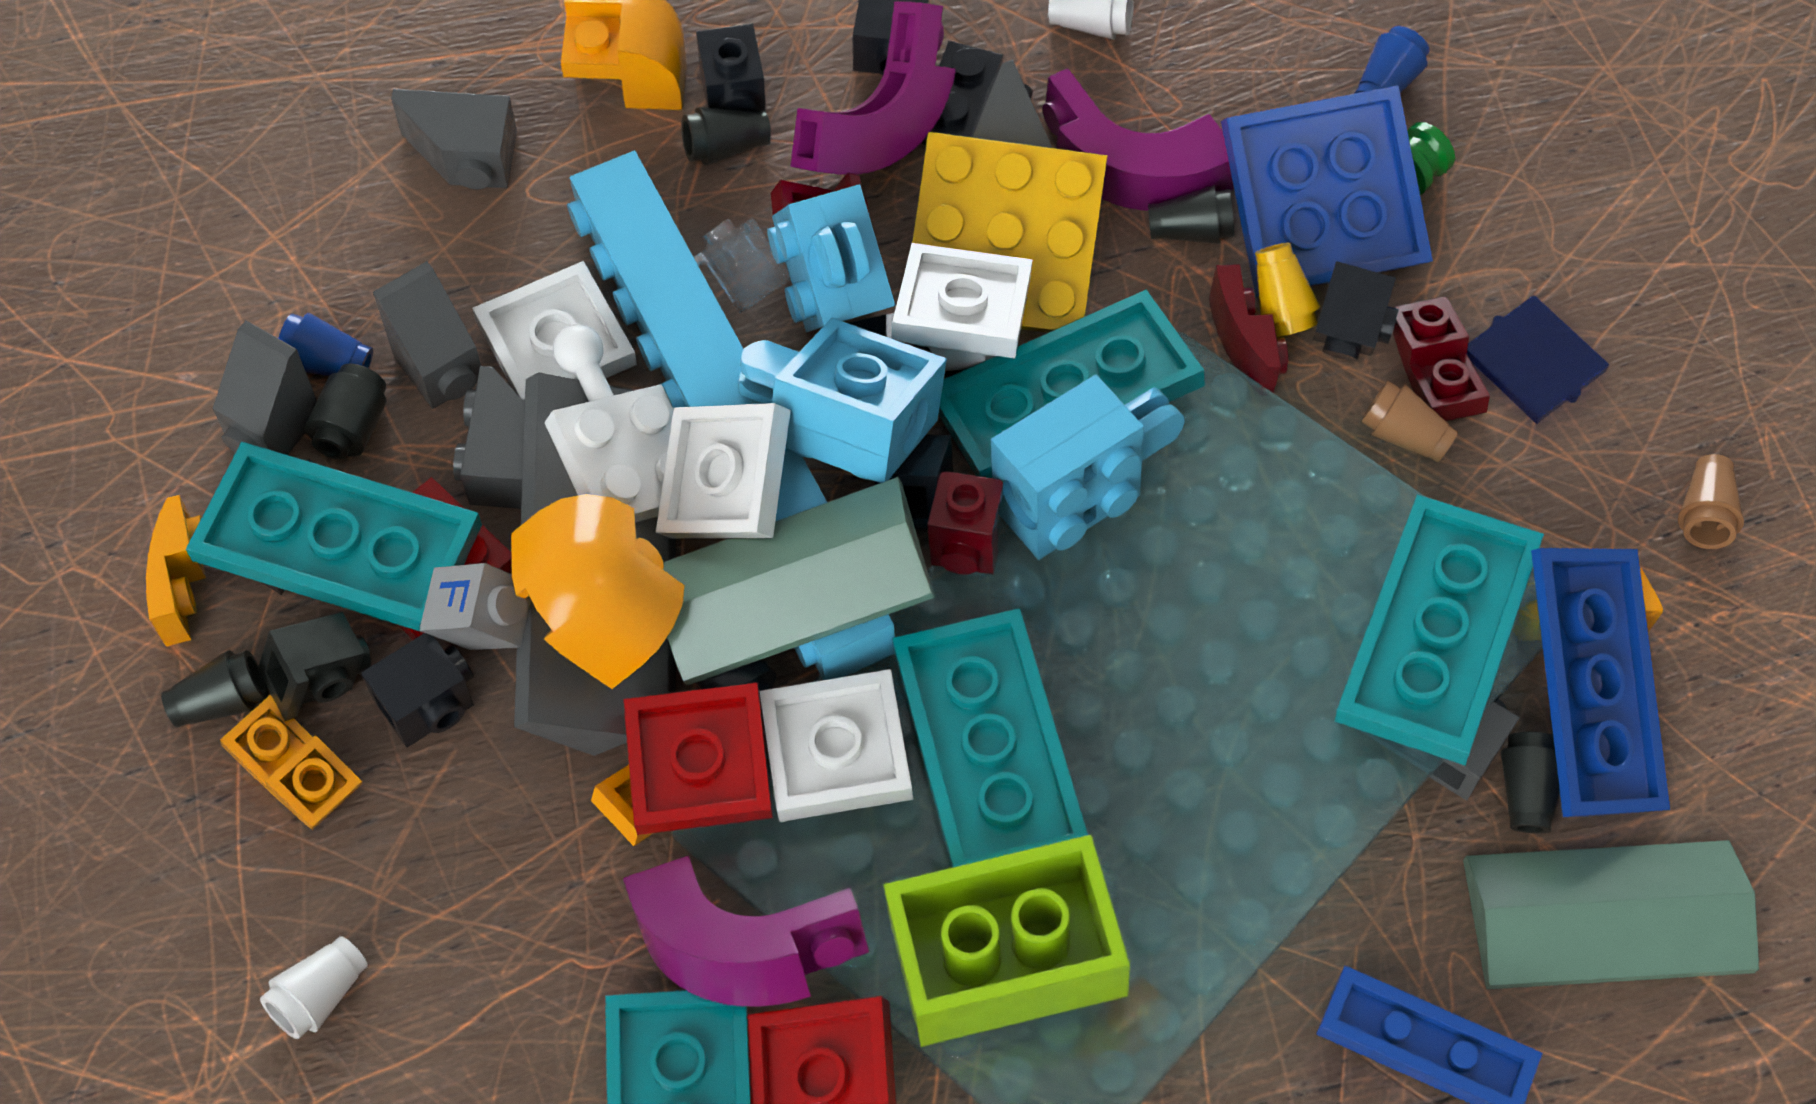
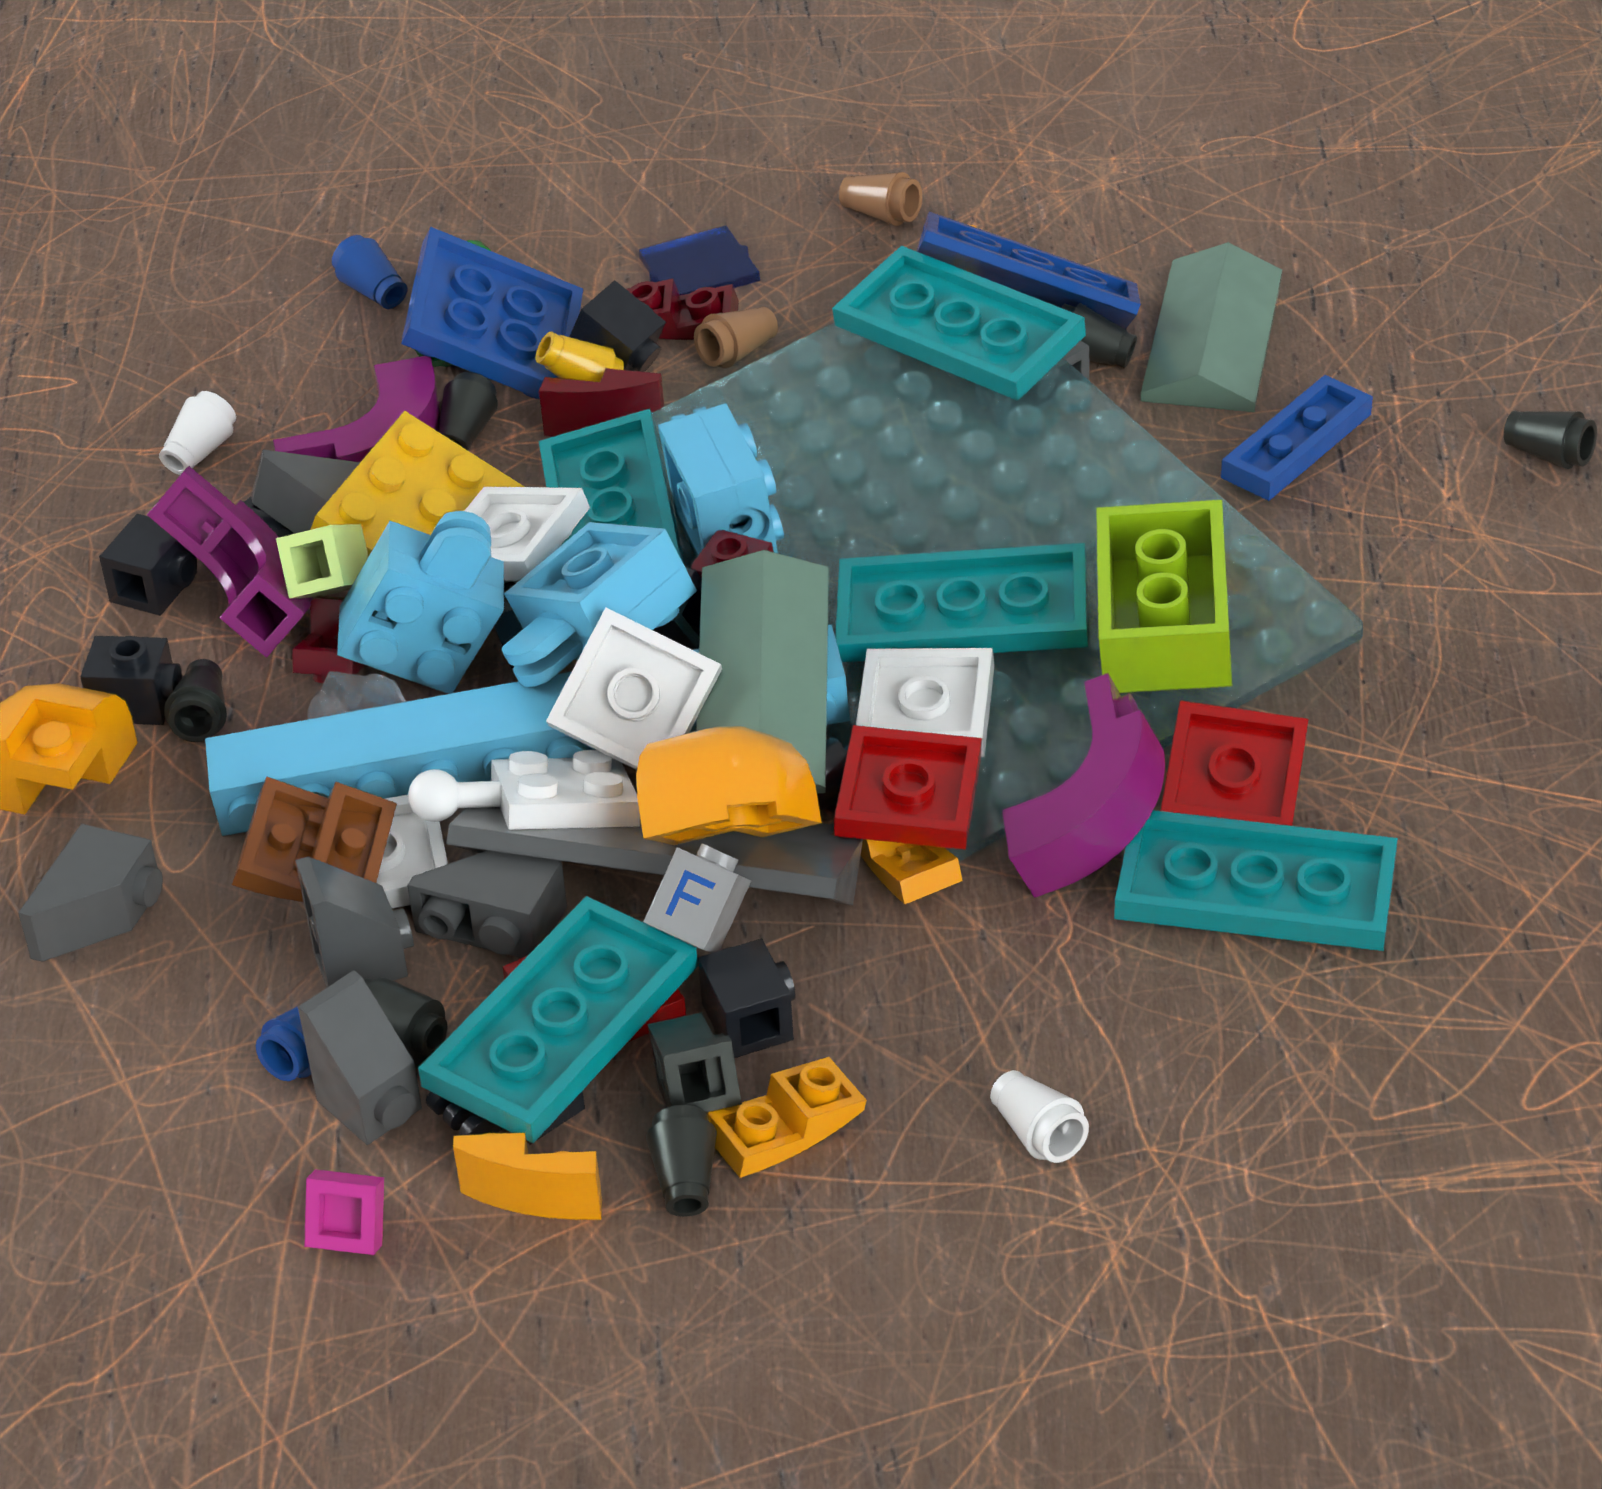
camera: 70 degrees left, 20 degrees down
(117, 443) = (344, 1212): none -> dark pink tile
(525, 277) = (294, 823): none -> dark orange slope
(876, 158) = (322, 559): none -> yellowish green brick

